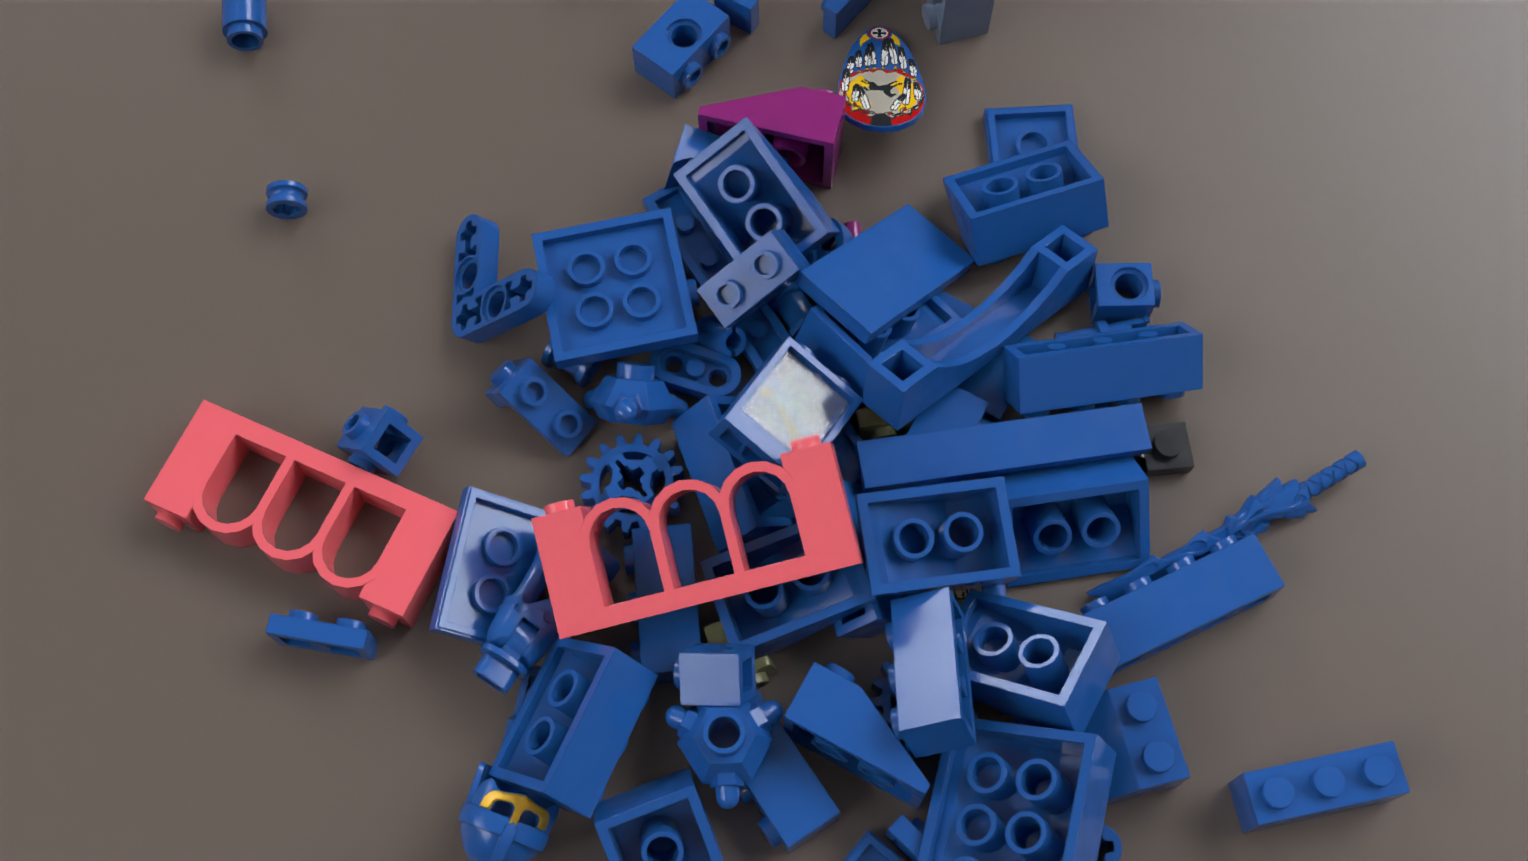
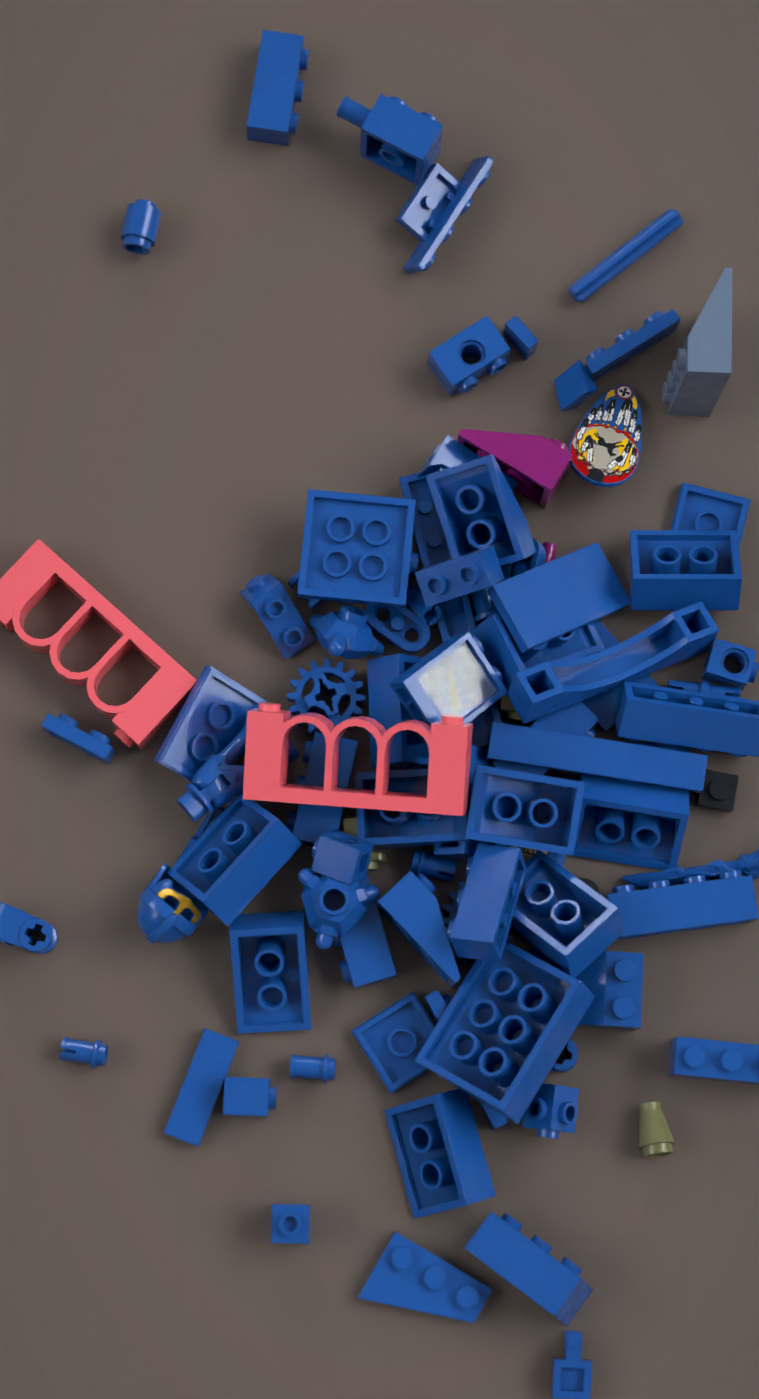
camera: 10 degrees right, 10 degrees up
(286, 199) = (135, 393): blue bush -> none
(379, 440) = (155, 608): blue brick -> none
(480, 297) = (270, 471): blue beam -> none
(819, 41) = (574, 386): none -> blue slope
(845, 653) = (432, 865): none -> blue pin

